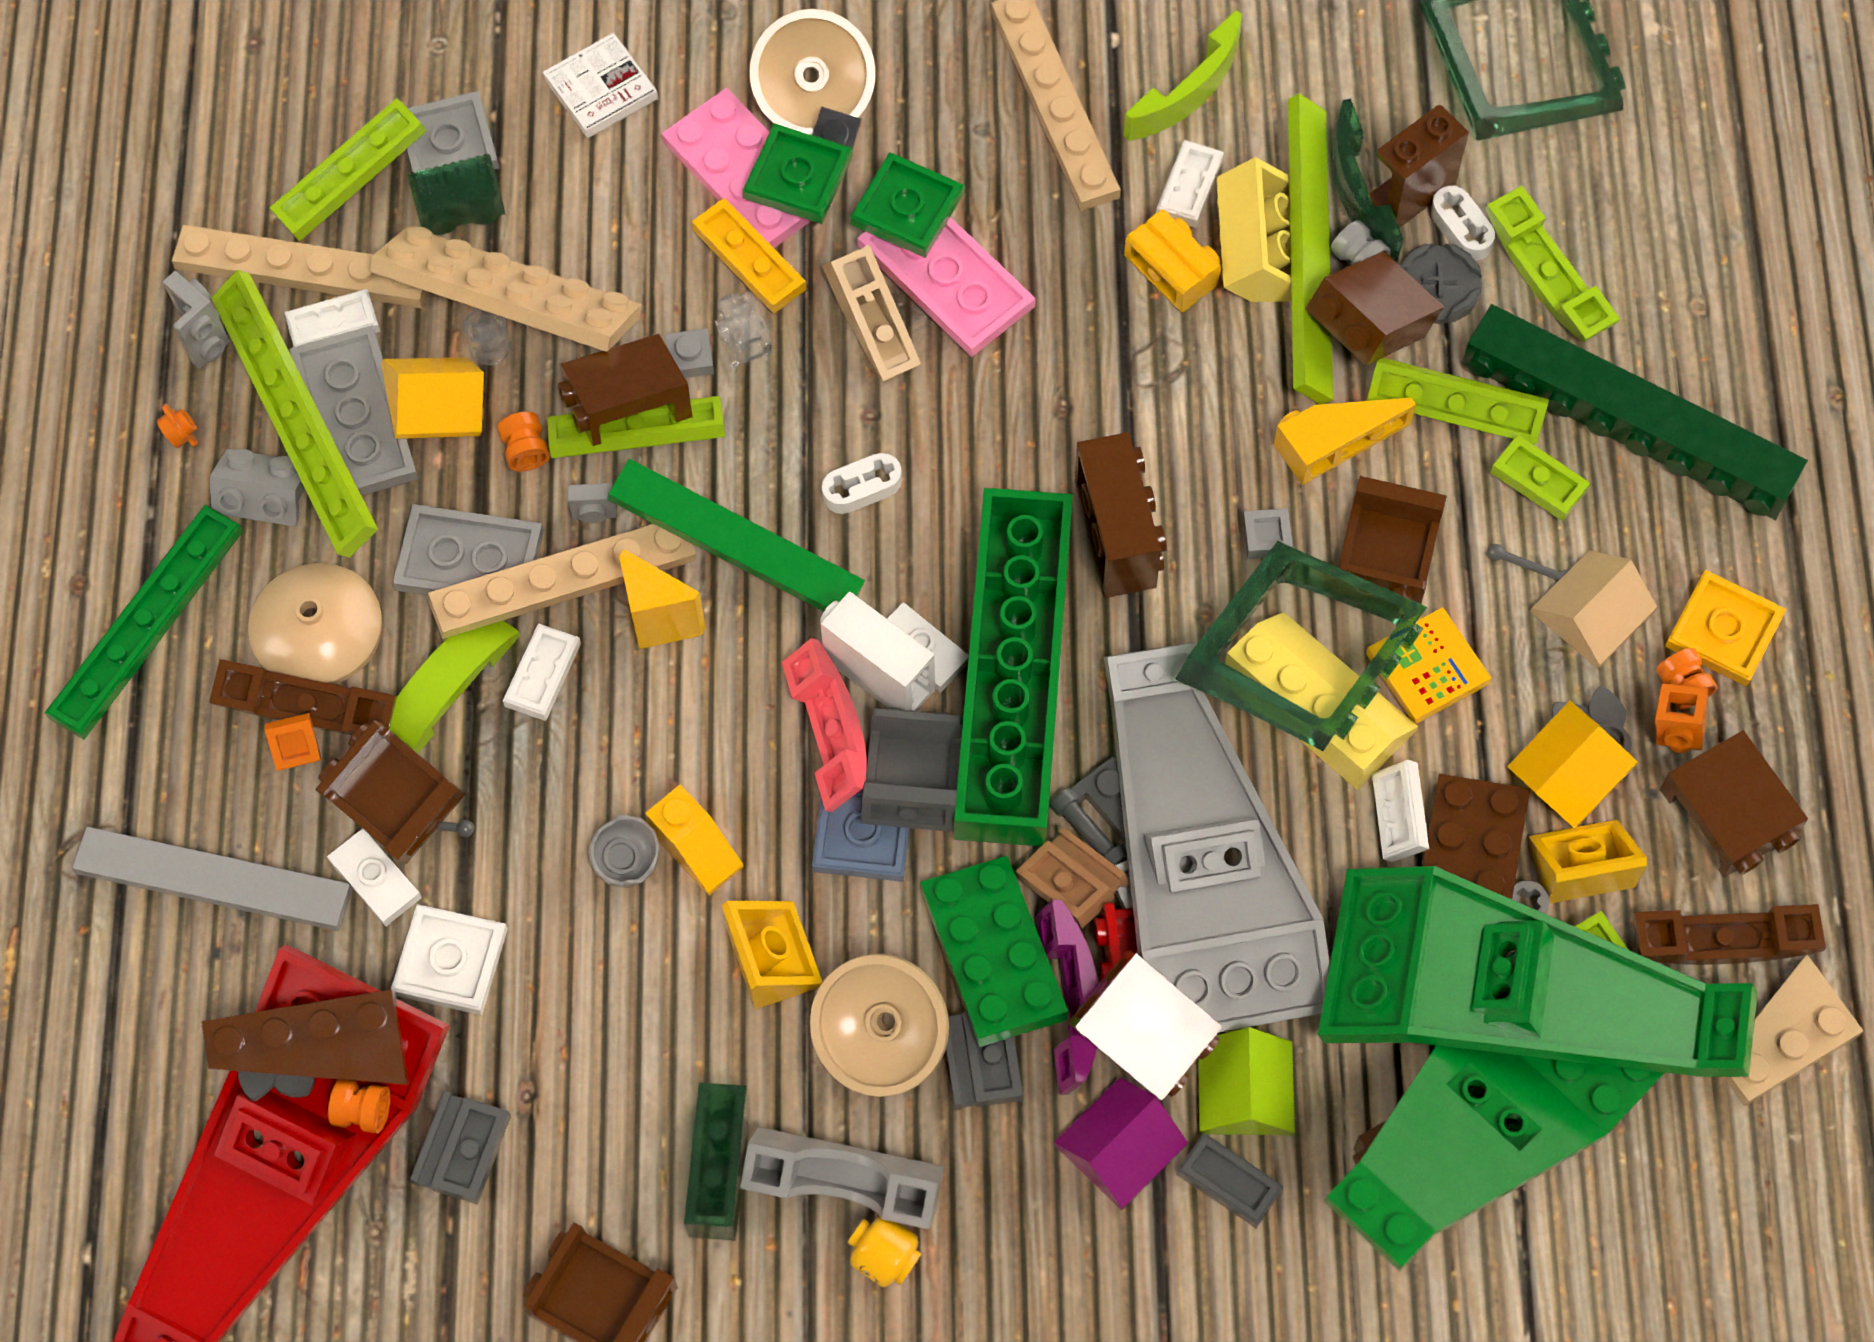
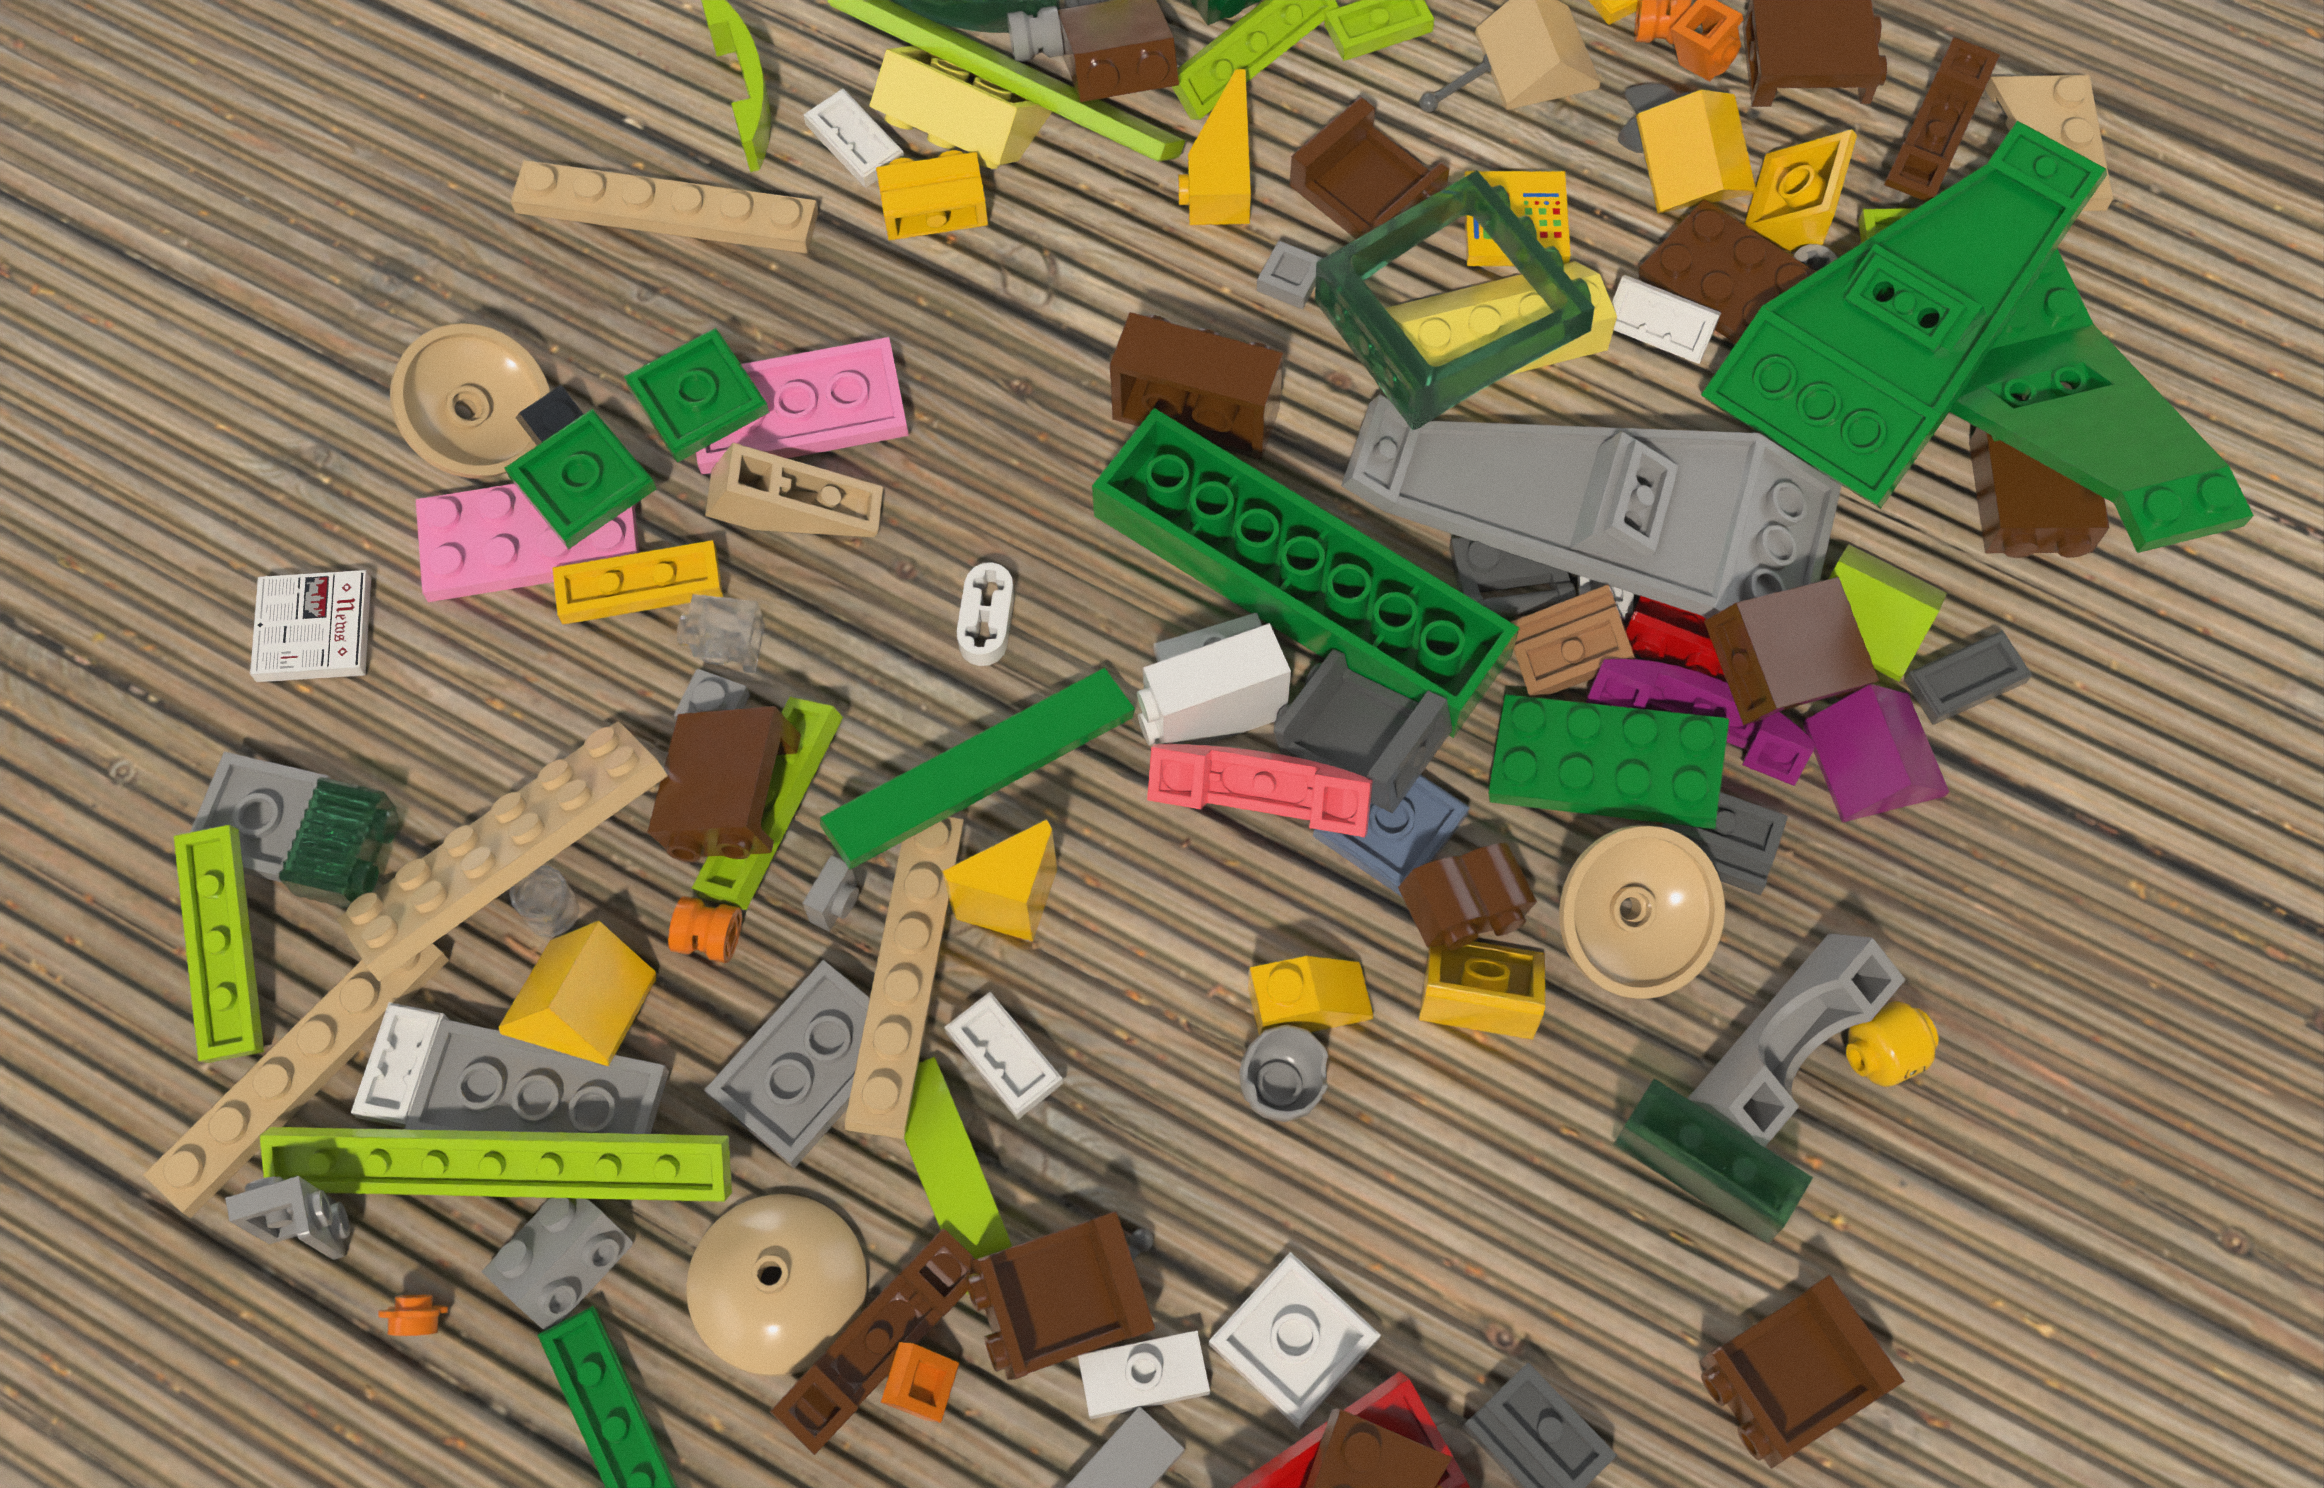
camera: 60 degrees left, 0 degrees up
(826, 905) = (1468, 896): none -> reddish brown brick

